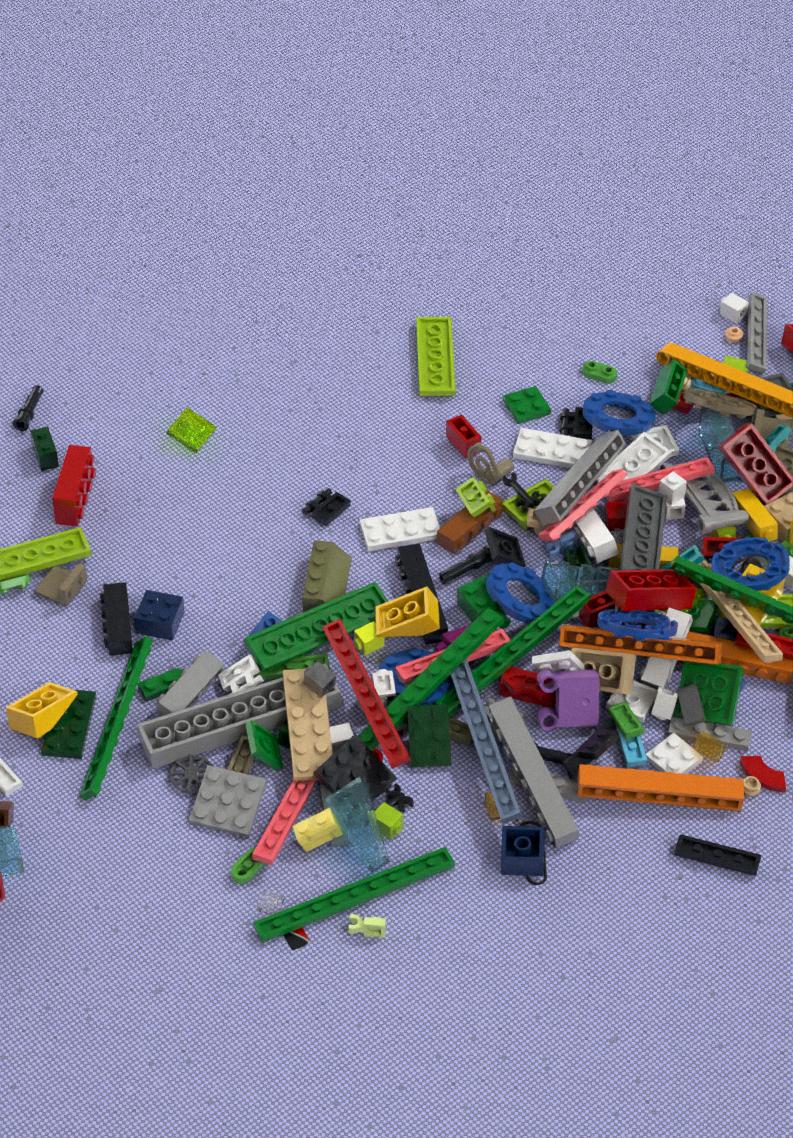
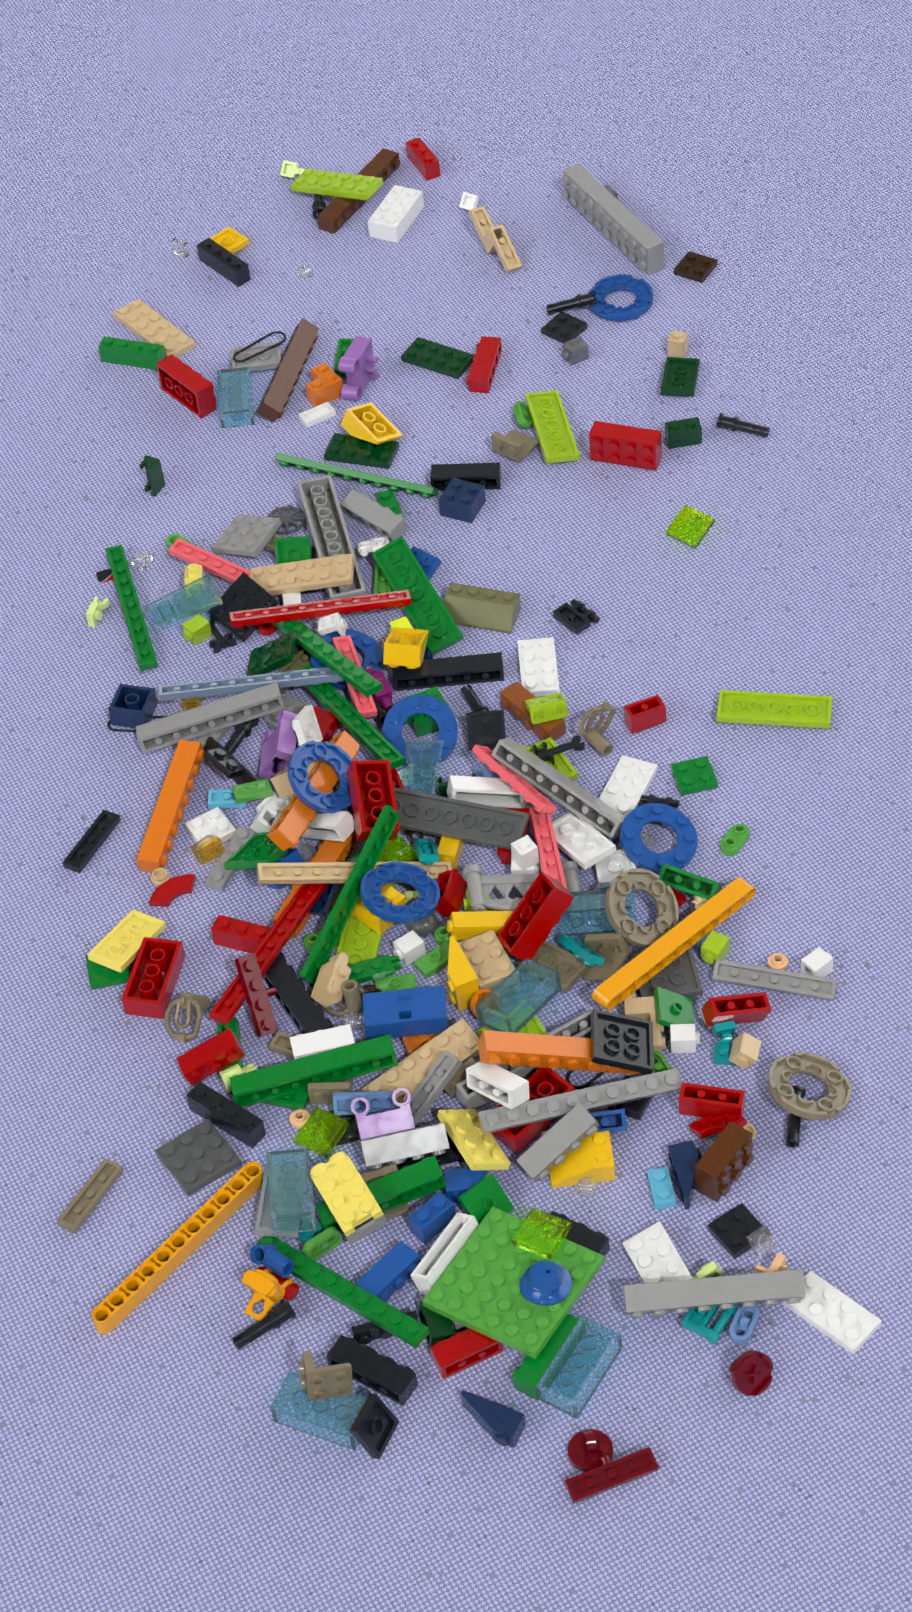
camera: 105 degrees right, 0 degrees up
(136, 906) = (154, 474): none -> dark green hinge
(319, 679) = (329, 569): flat silver brick -> none
(691, 705) = (250, 835): dark grey tile -> none

